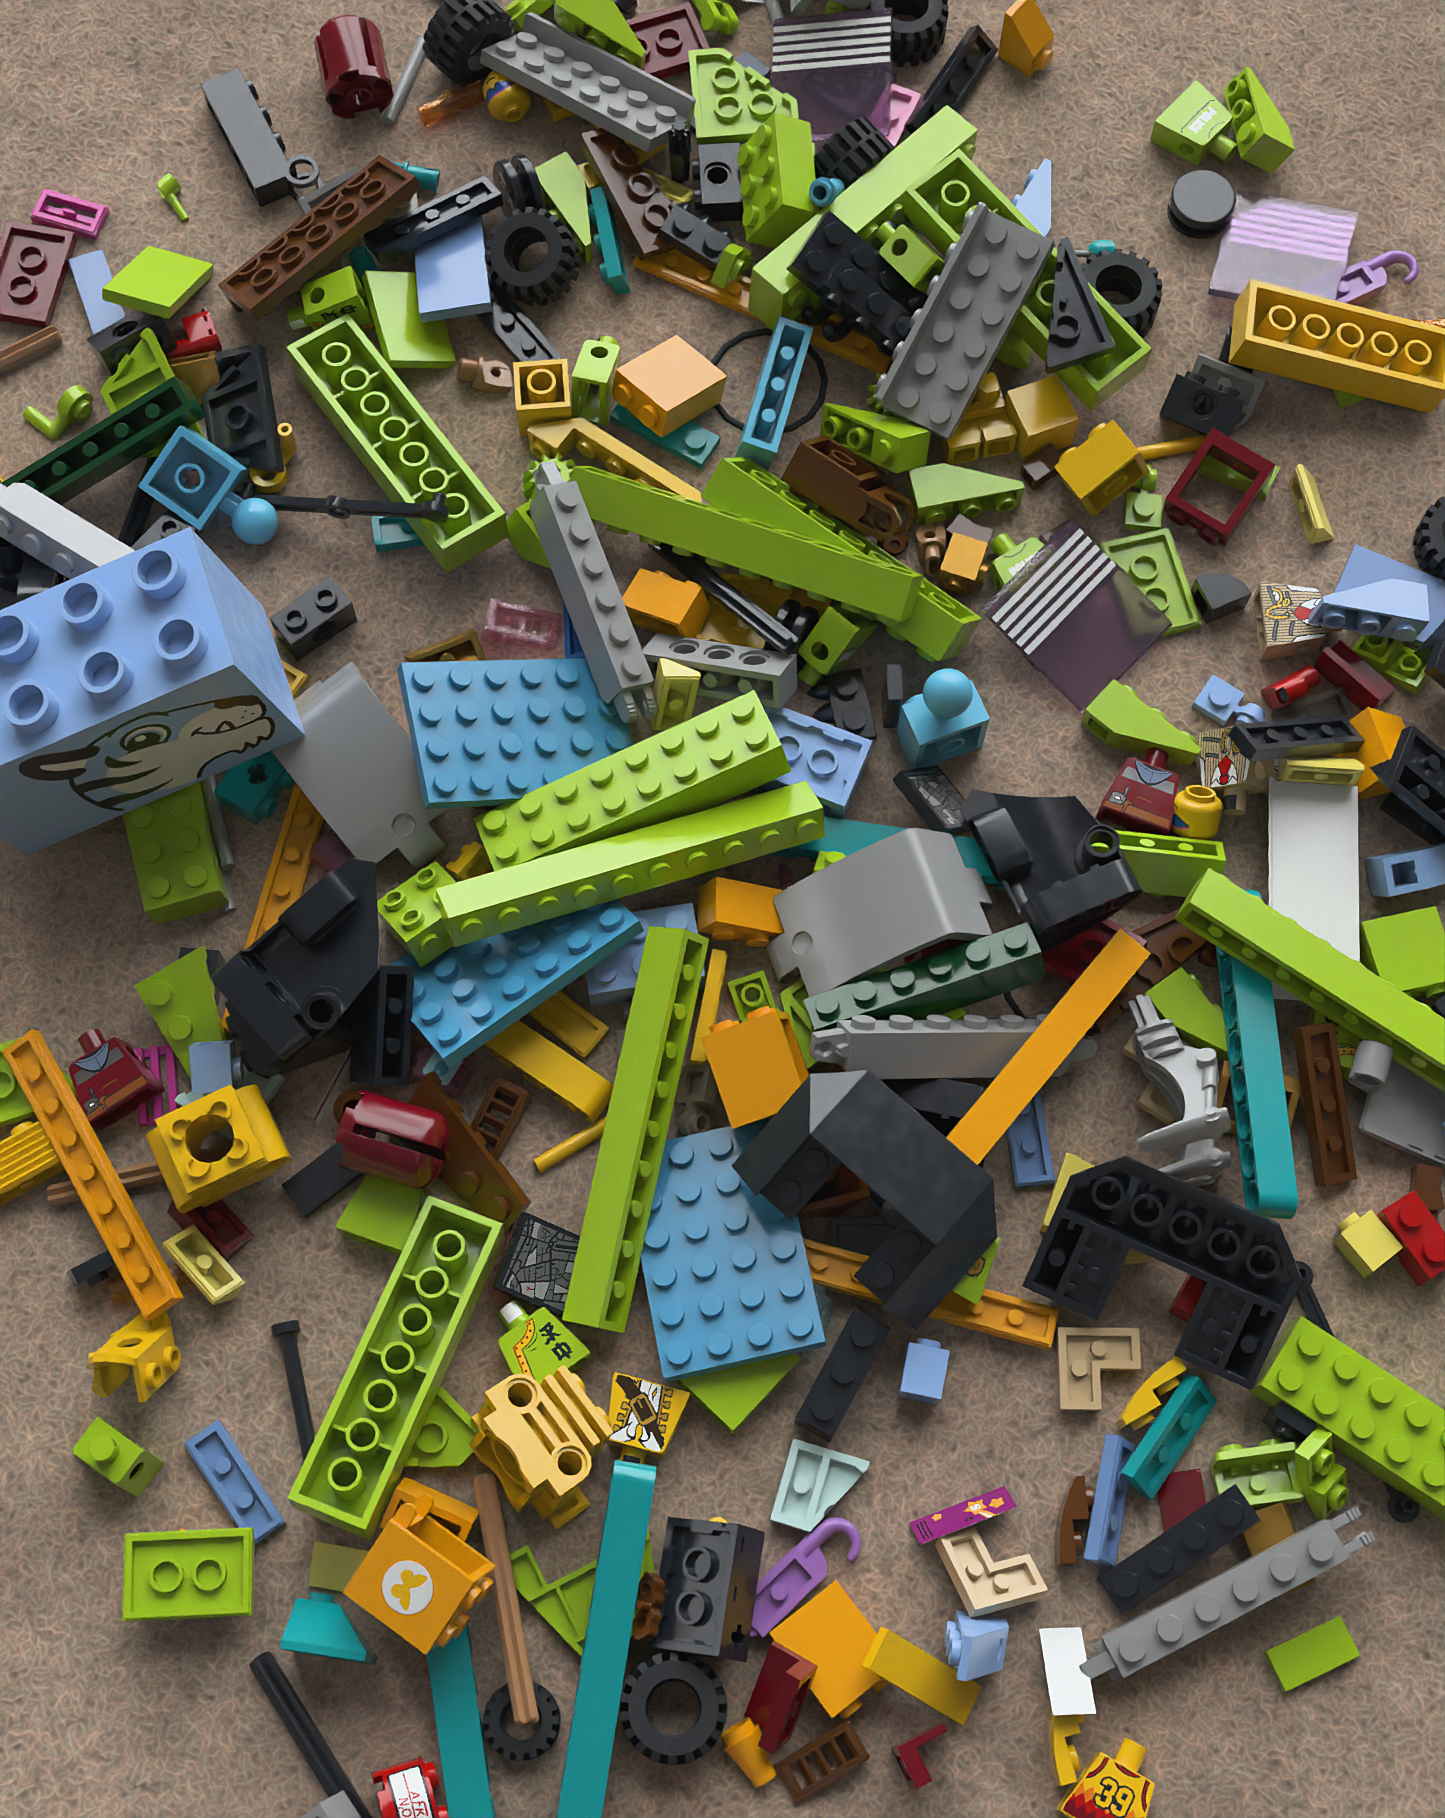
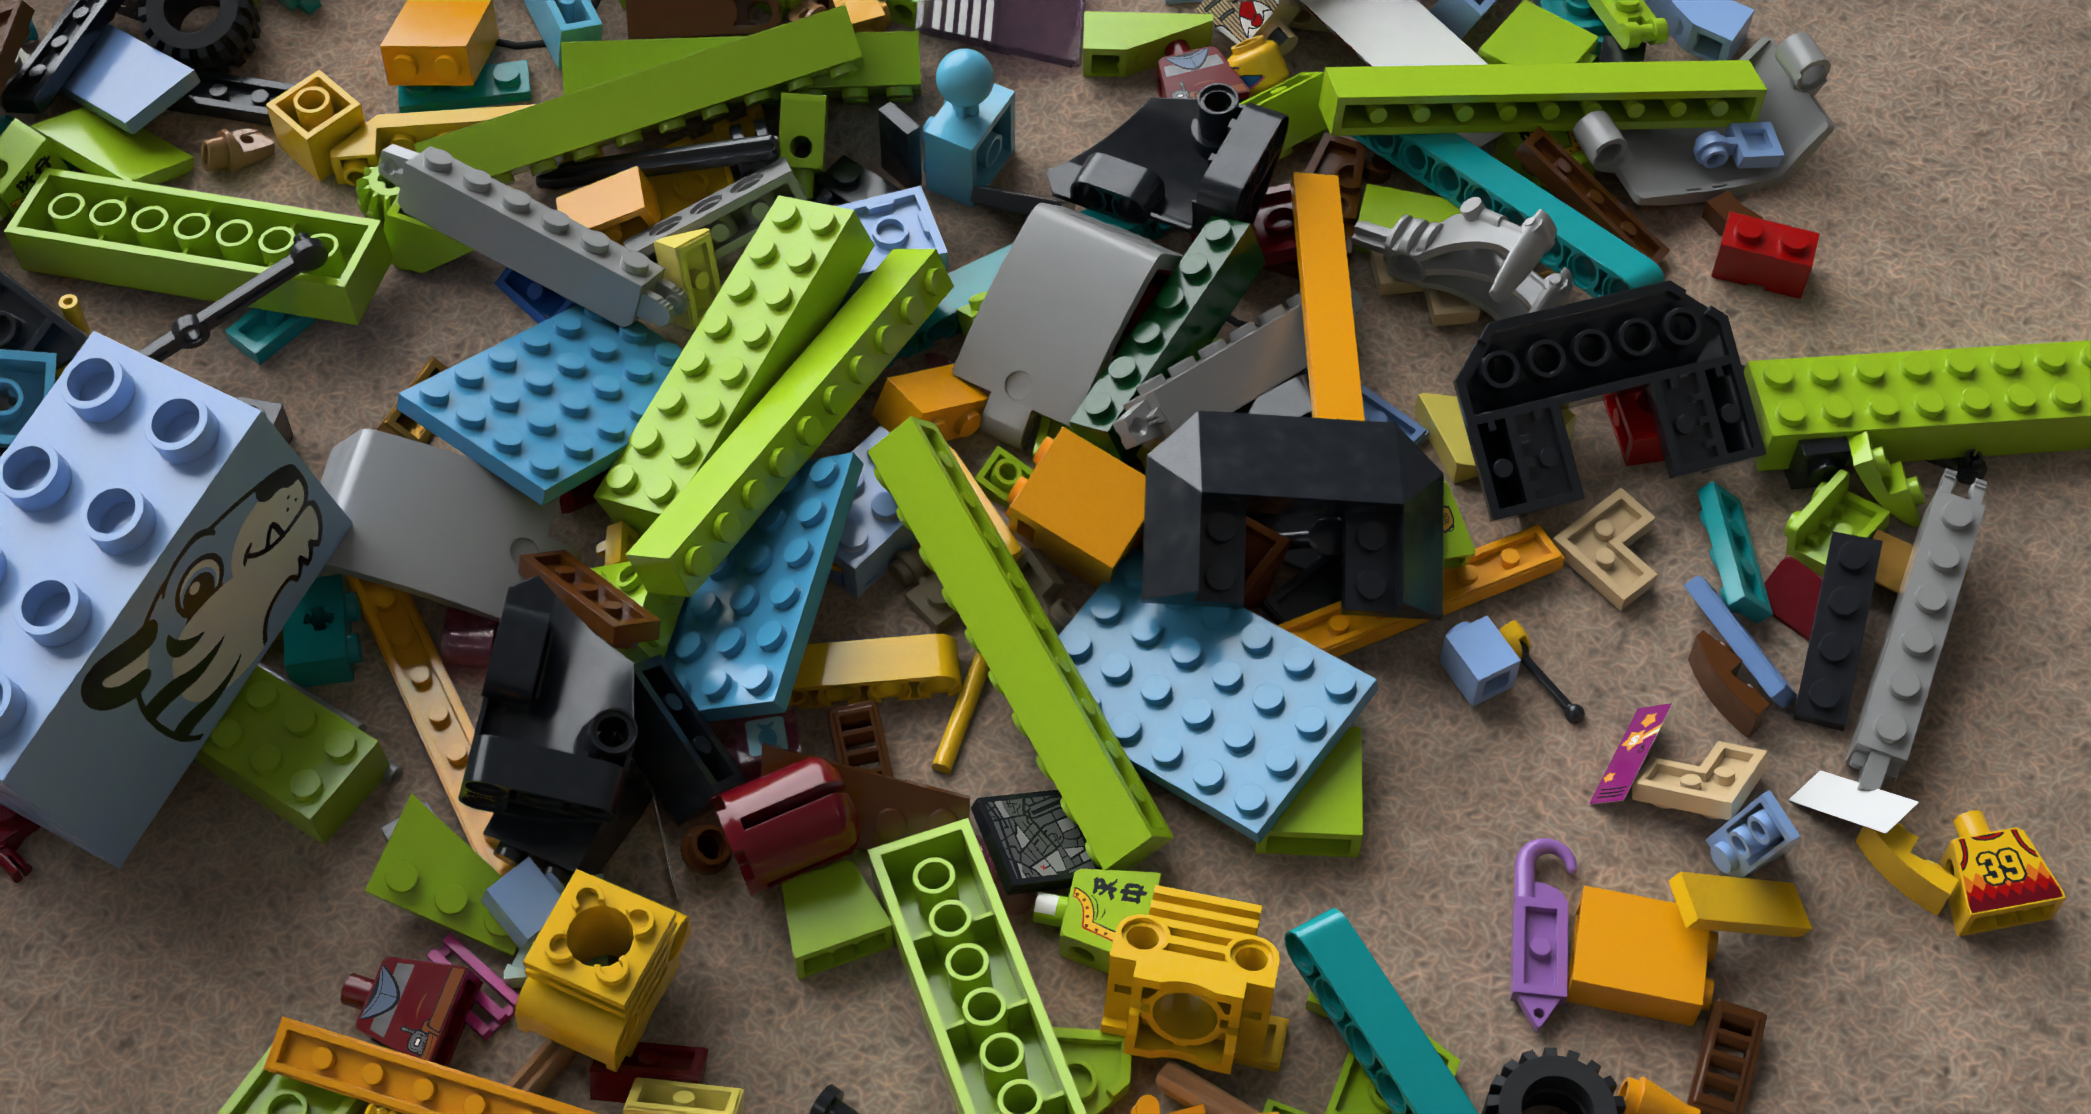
camera: 40 degrees left, 15 degrees down
(320, 1181) = (733, 937): black tile -> none
(402, 895) = (592, 598): none -> reddish brown plate
(504, 635) = (450, 347): clear pink slope -> none
(570, 1023) = (854, 620): yellow tile -> none
(595, 366) = (358, 66): lime torso -> none
(644, 1417) = (1268, 878): torso -> none
(651, 1599) = (1442, 1037): reddish brown piece -> none
(708, 1587) = (1477, 985): black piece -> none
(780, 1695) = (1634, 1026): dark red panel -> none
(813, 1484) = (1474, 835): light aqua wing -> none
(842, 1375) = (1411, 720): black brick -> none
(910, 1759) = (1809, 977): dark red panel -> none
(961, 1379) = (1521, 644): none -> black hinge
(1142, 1403) = (1683, 533): yellow slope -> none
(1311, 1653) = (2022, 635): lime tile -> none
(1366, 1242) = (1731, 286): light yellow brick -> none

